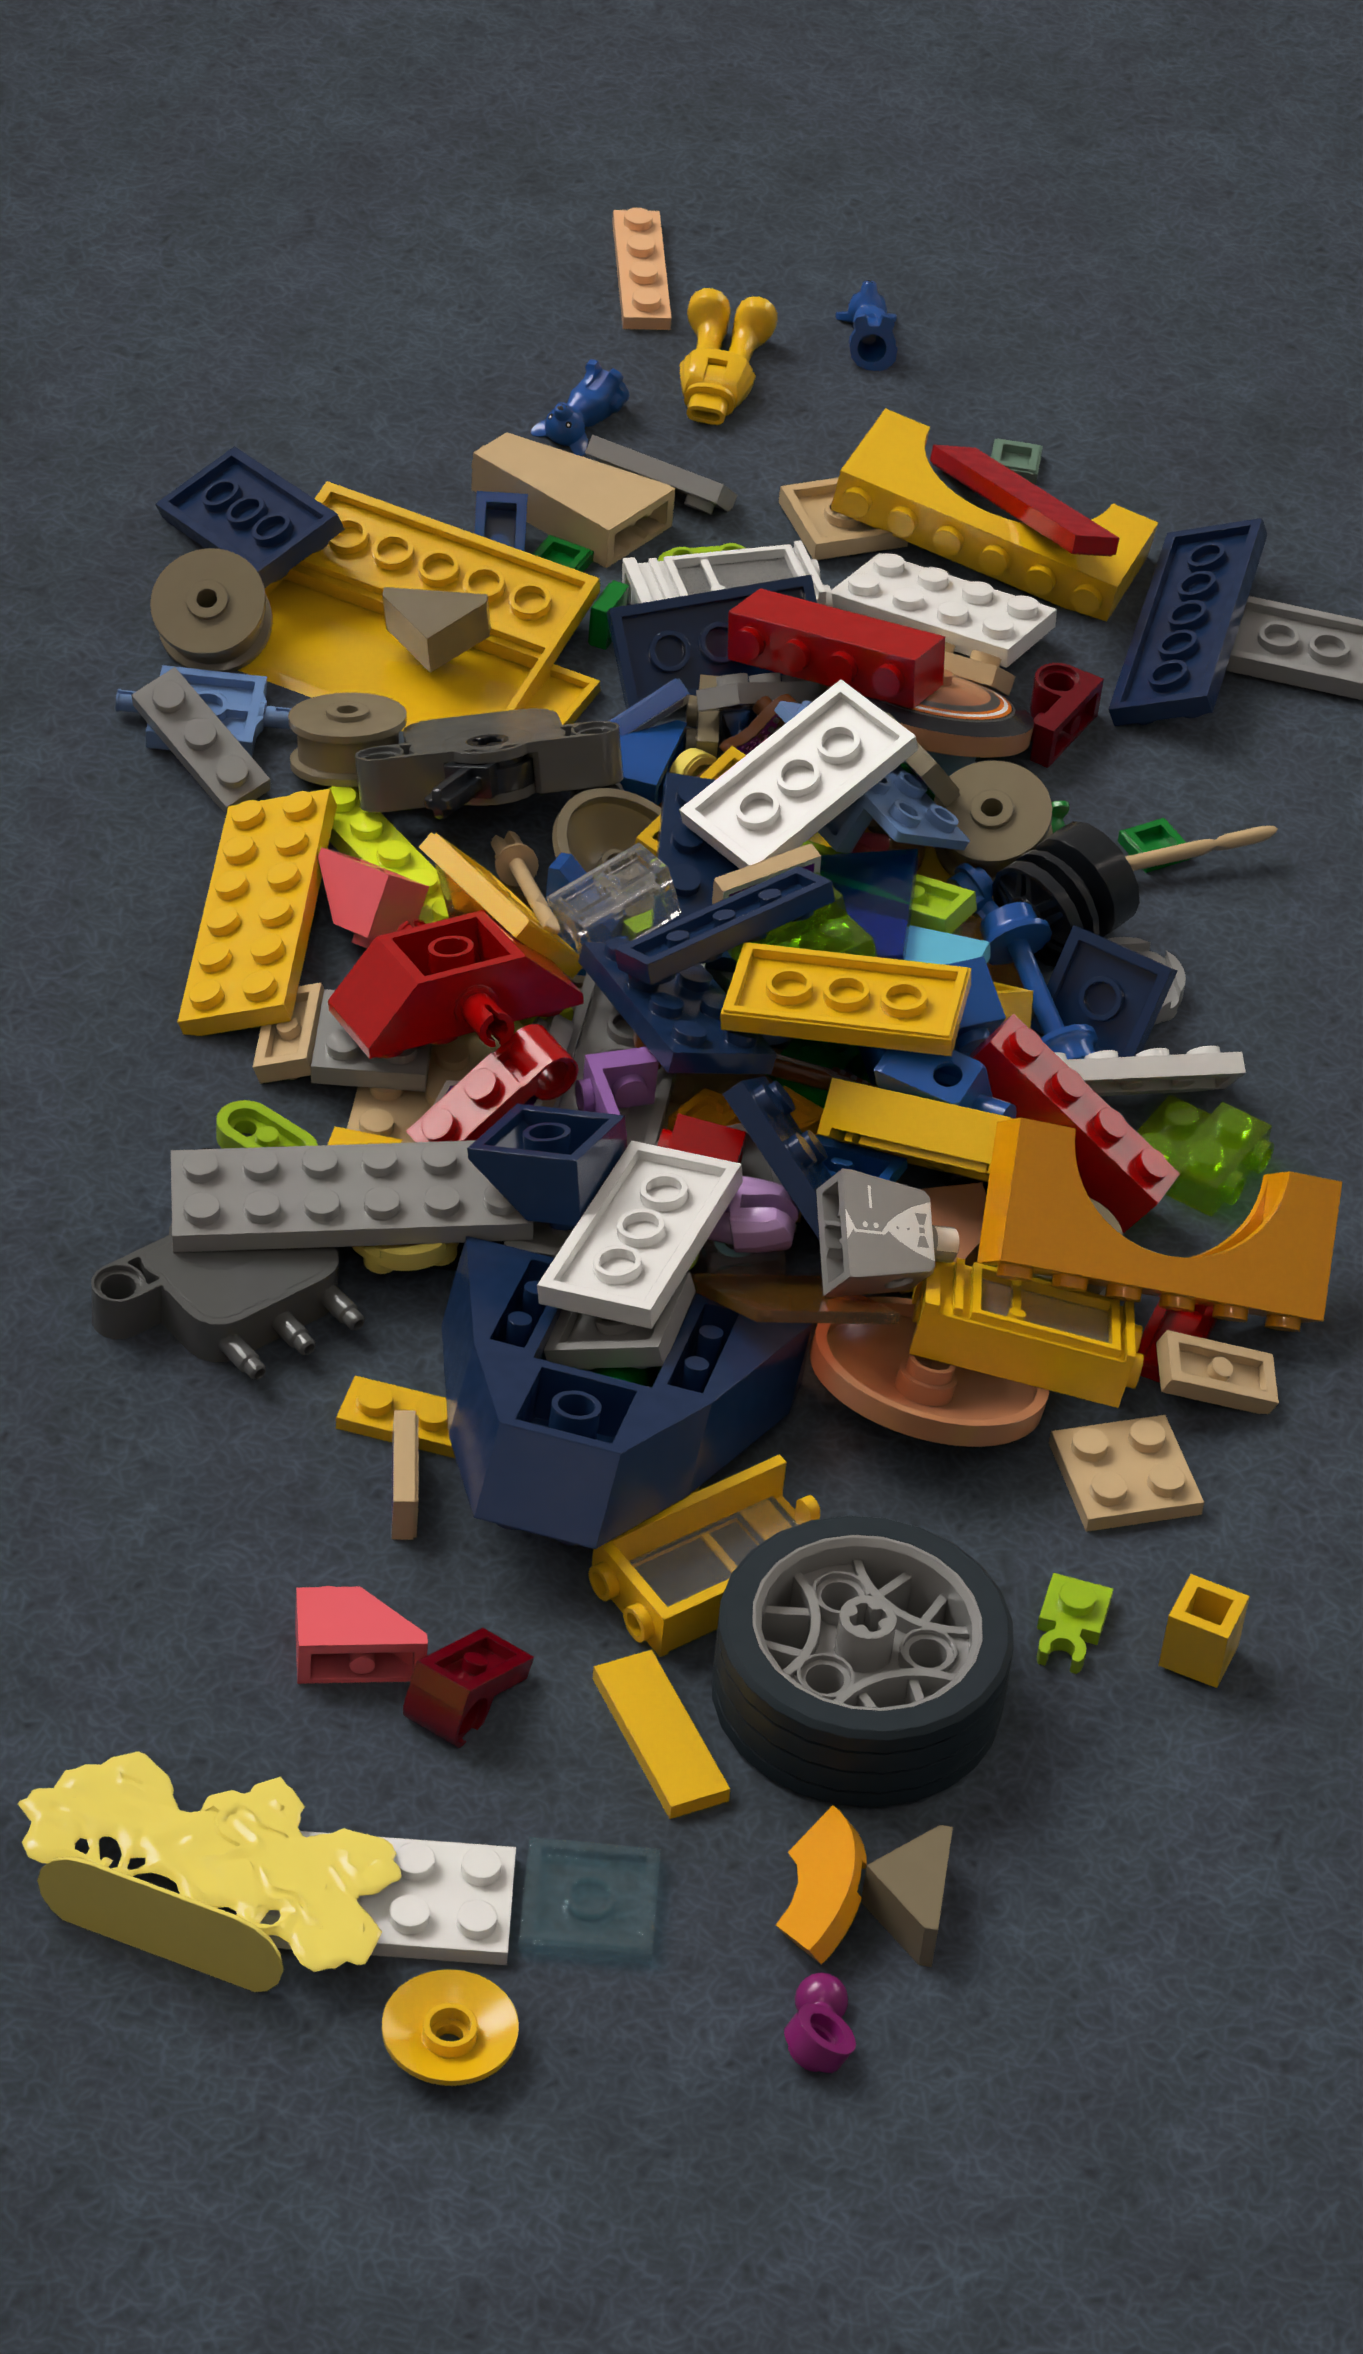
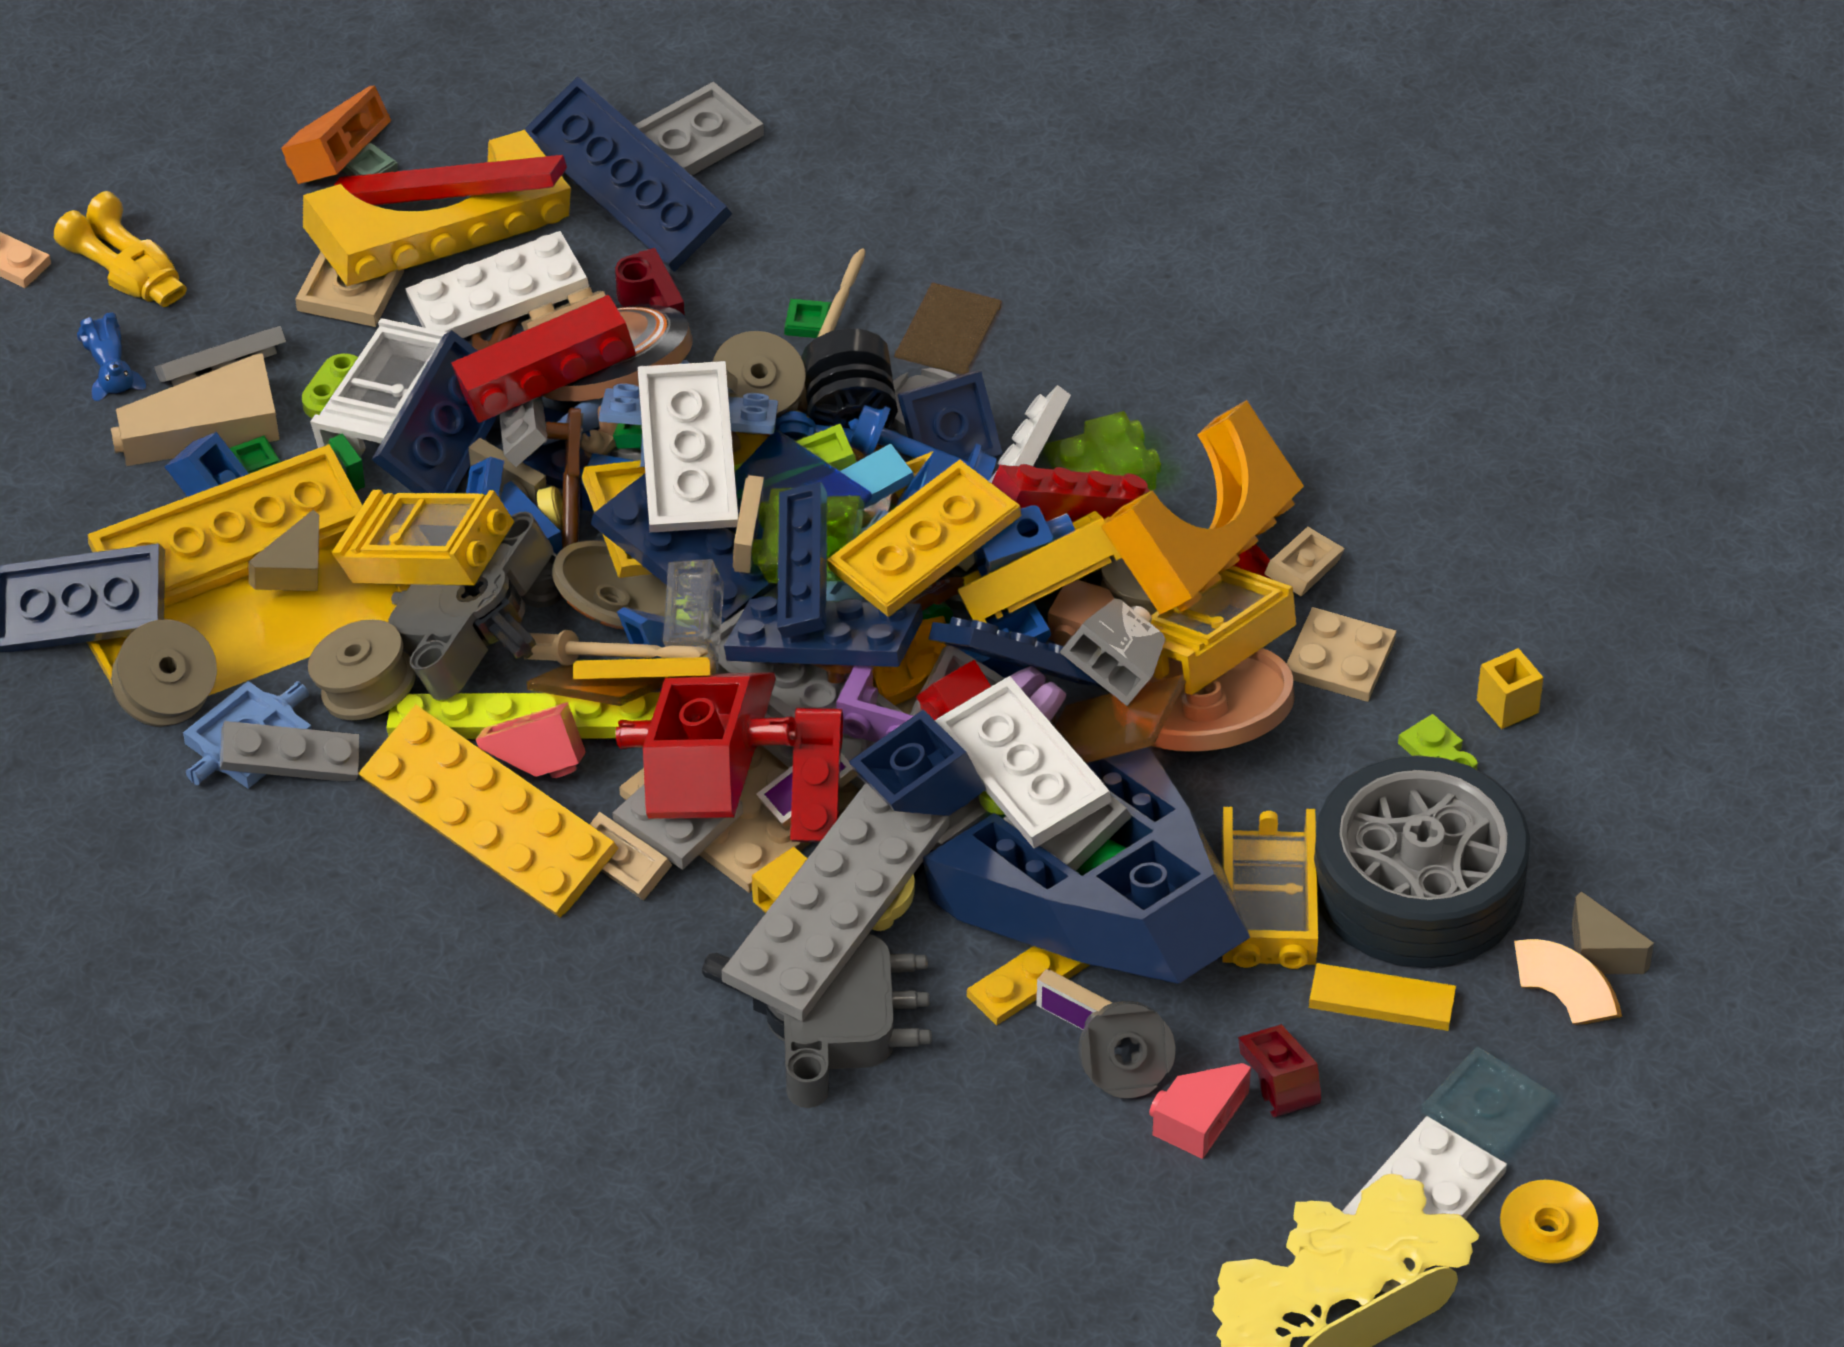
camera: 50 degrees left, 5 degrees up
(264, 1124) = (713, 923): lime plate -> none
(399, 1534) = (1147, 1066): none -> dark grey plate
(529, 683) = (423, 538): none -> yellow door
(817, 2033) = (1673, 1047): magenta plate -> none
(872, 329) = (170, 158): blue animal -> none
(1020, 415) = (336, 137): none -> orange slope
(1259, 954) = (948, 329): none -> clear orange piece

